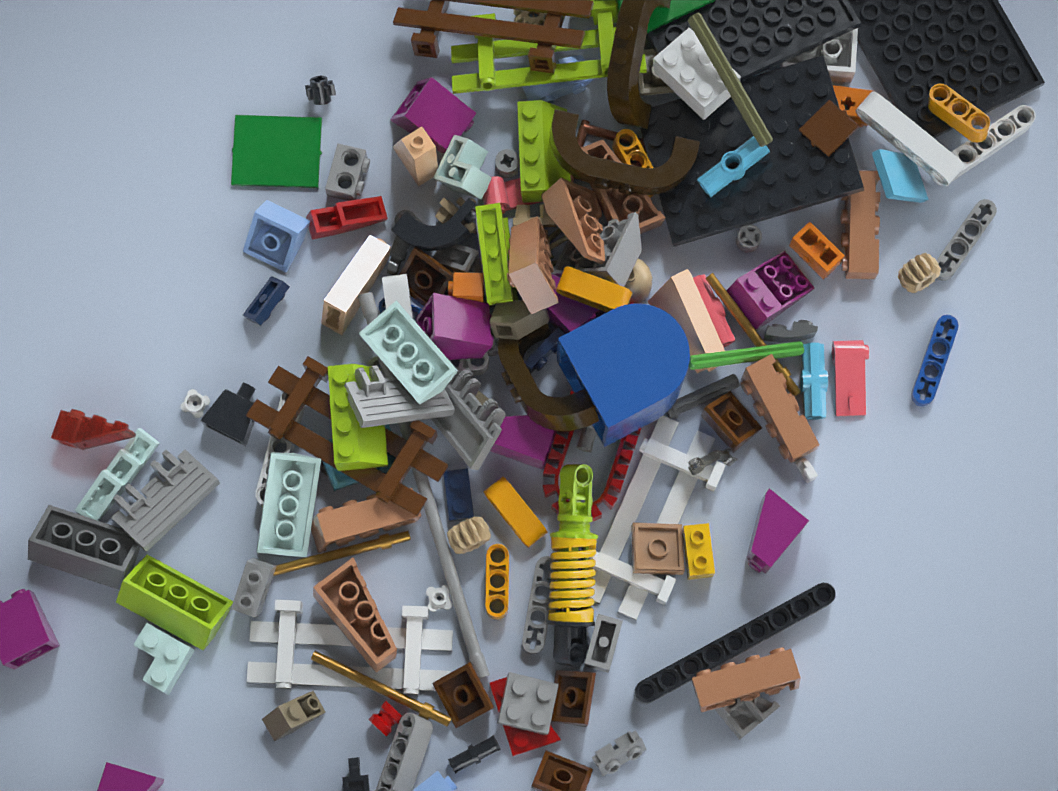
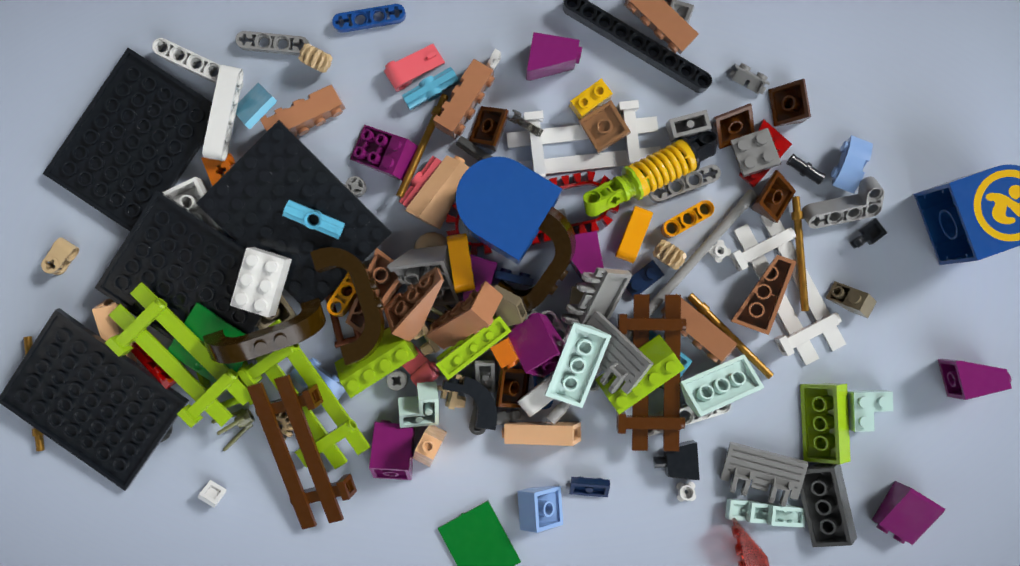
camera: 115 degrees left, 10 degrees up
(253, 587) = (788, 375): light grey brick -> none
(320, 90) = (419, 541): black gear -> none
(341, 172) = (470, 491): light grey brick -> none
(346, 217) = (499, 467): red slope -> none
(385, 718) = (818, 238): red wheel -> none
(730, 80) = (253, 252): olive axle -> none
(745, 355) = (440, 138): bright green axle -> none
(799, 331) = (403, 119): dark grey slope -> none
(816, 250) = (339, 134): orange brick -> none
(829, 128) = (248, 167): reddish brown piece -> none
(961, 123) = (177, 96): light orange beam -> none

